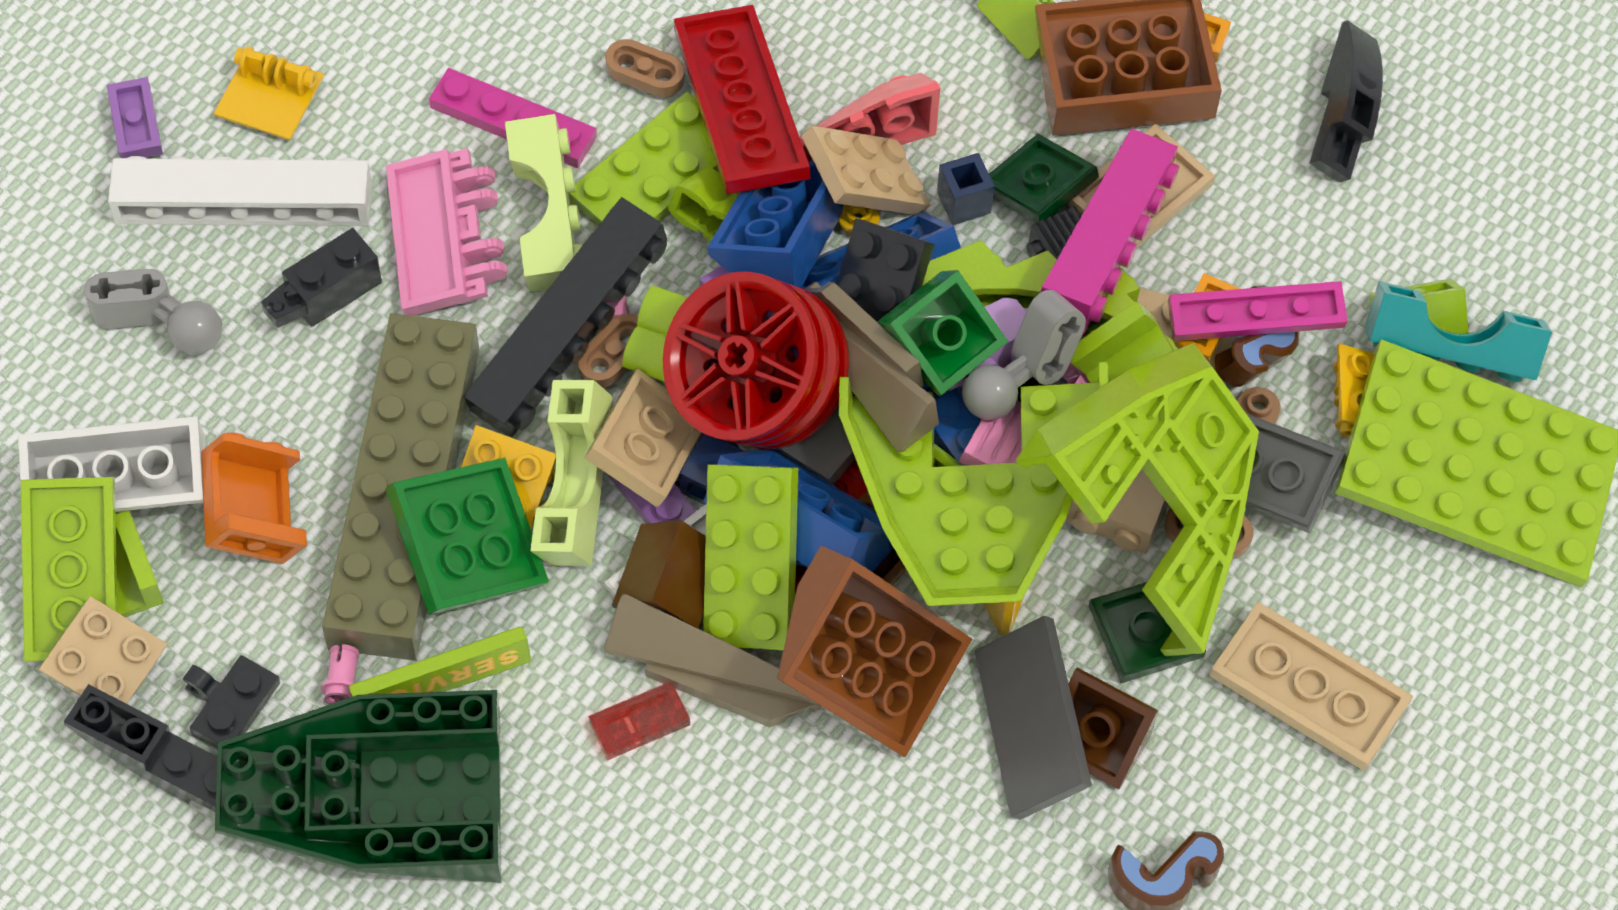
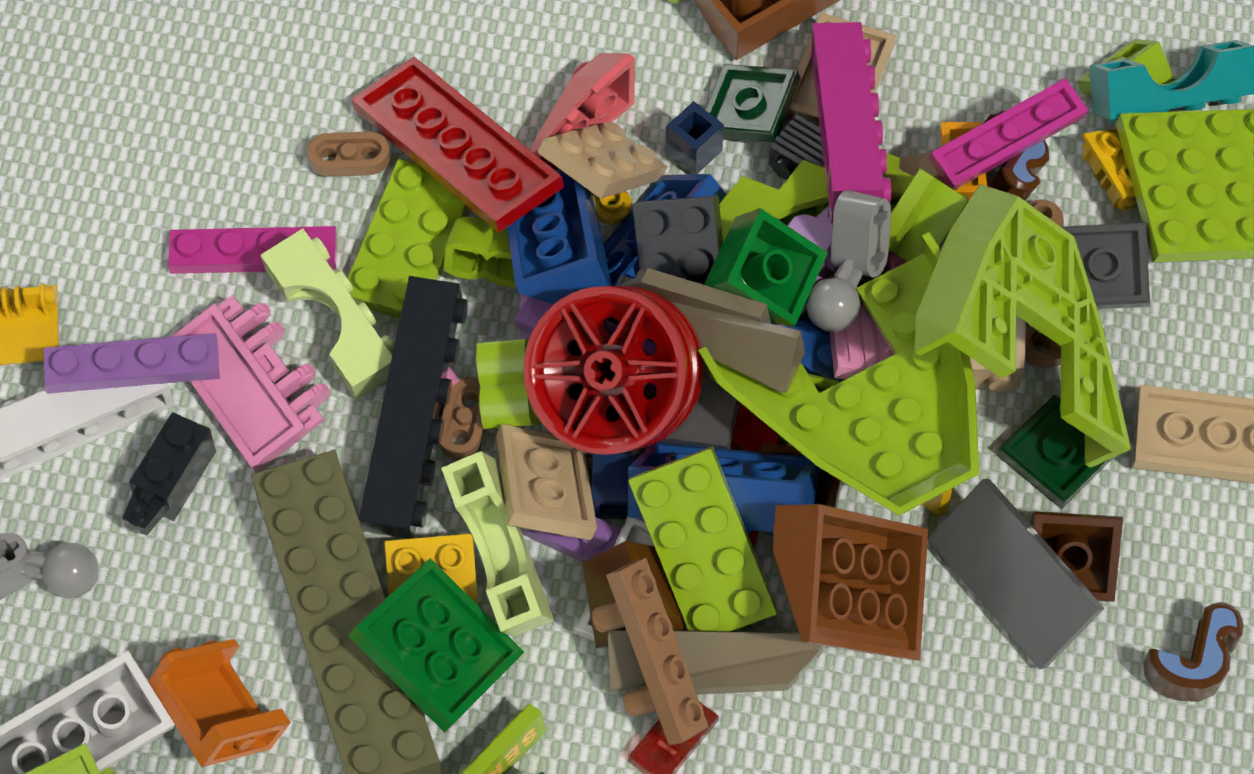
camera: 25 degrees left, 0 degrees up
(342, 169) = (131, 363): none -> medium lavender plate
(652, 632) = (657, 651): none -> medium nougat plate

